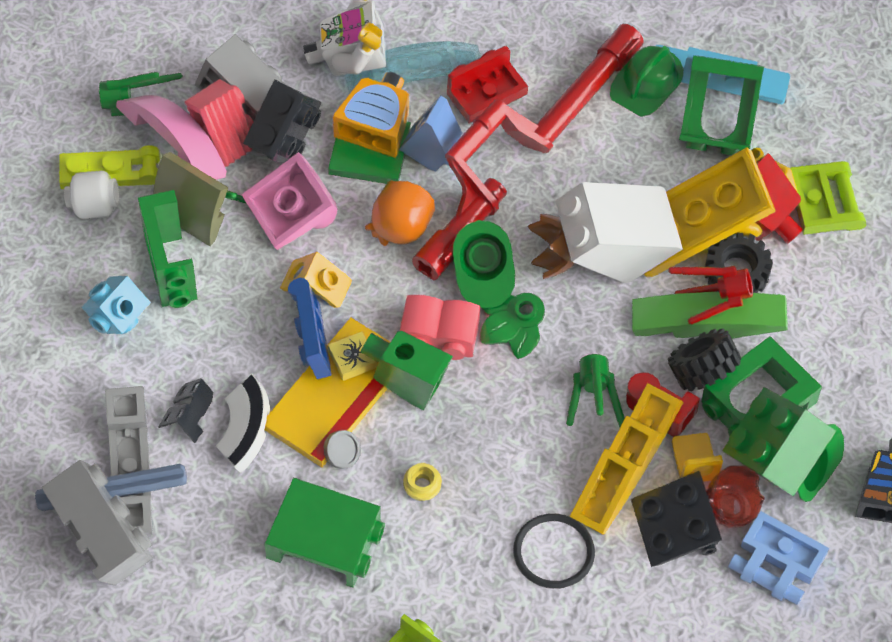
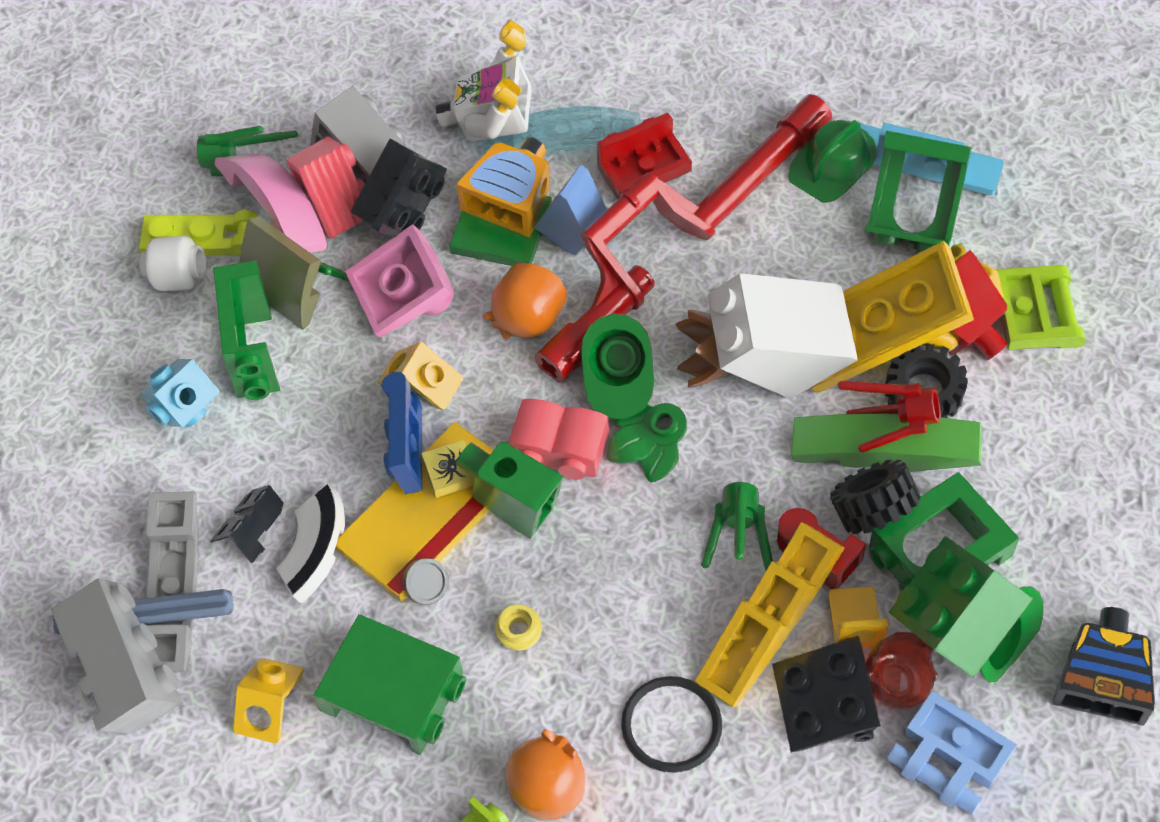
camera: 10 degrees right, 0 degrees up
(222, 540) = (265, 687): none -> yellow bracket
(459, 596) = (545, 776): none -> orange helmet

